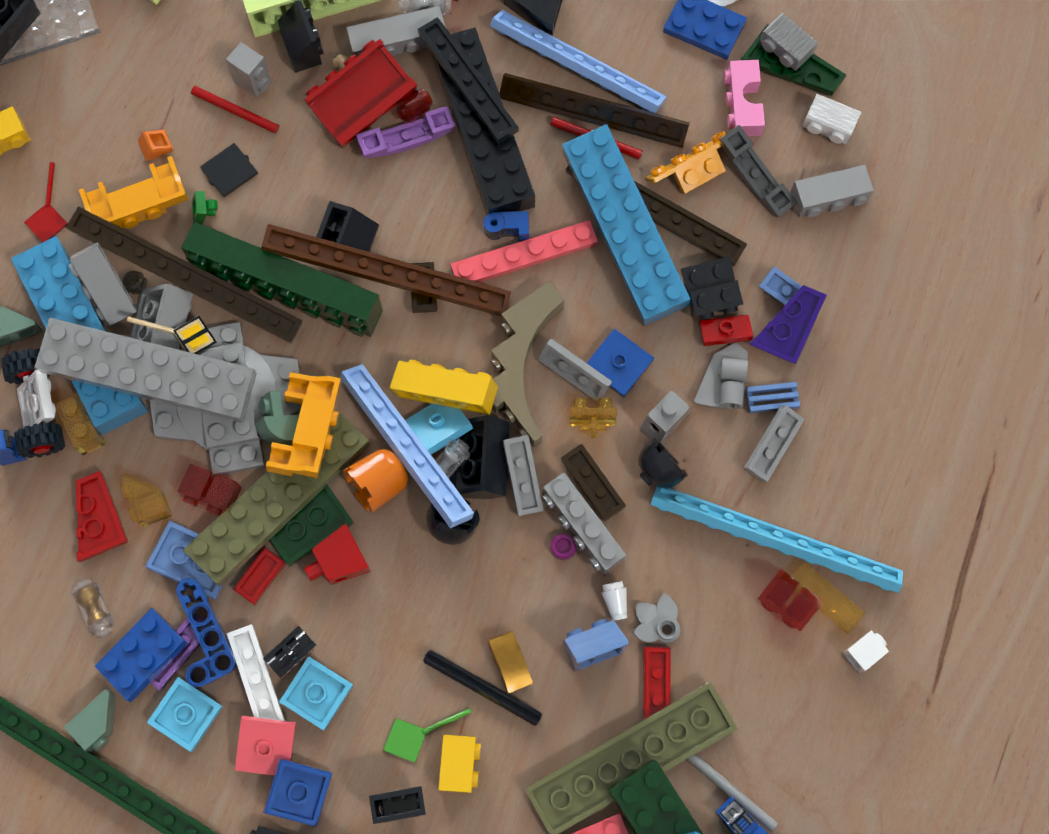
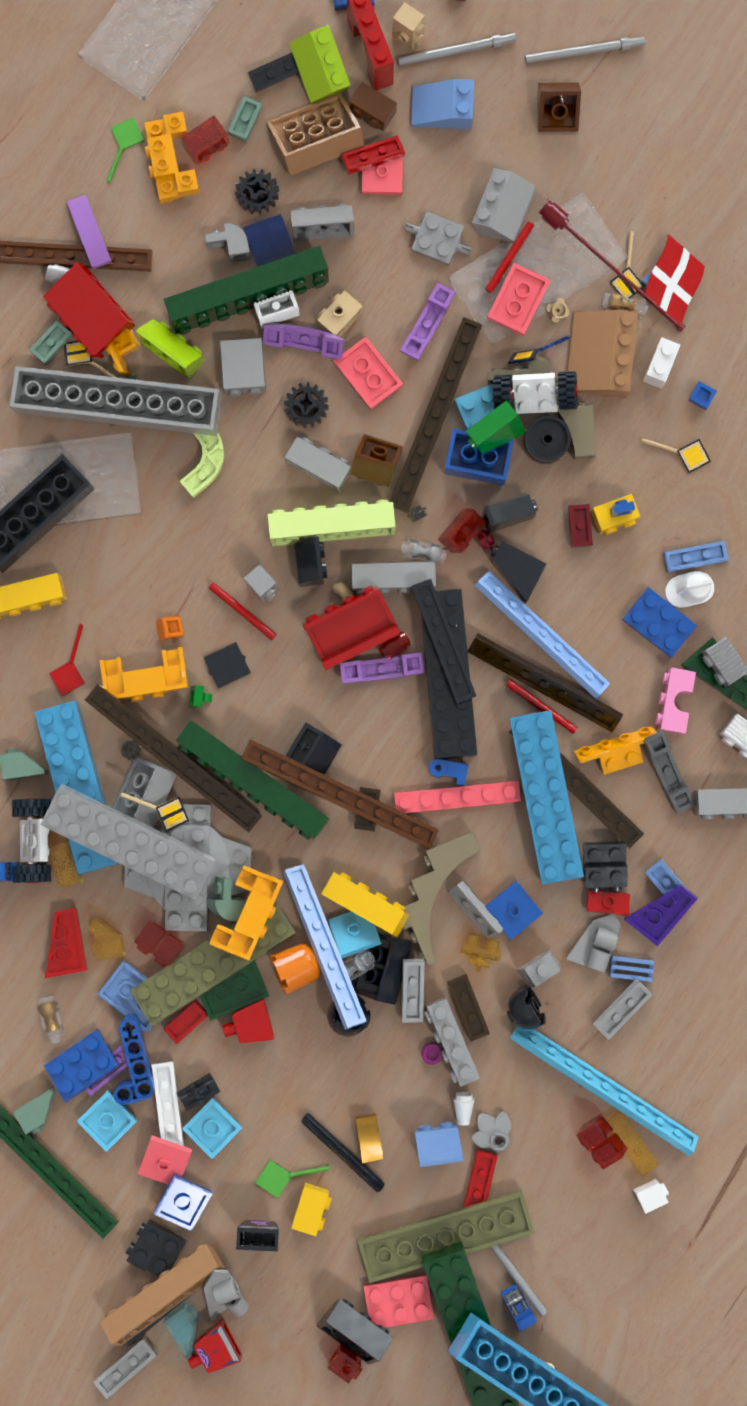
camera: 10 degrees right, 10 degrees up
(102, 284) = (105, 752): light grey brick -> none

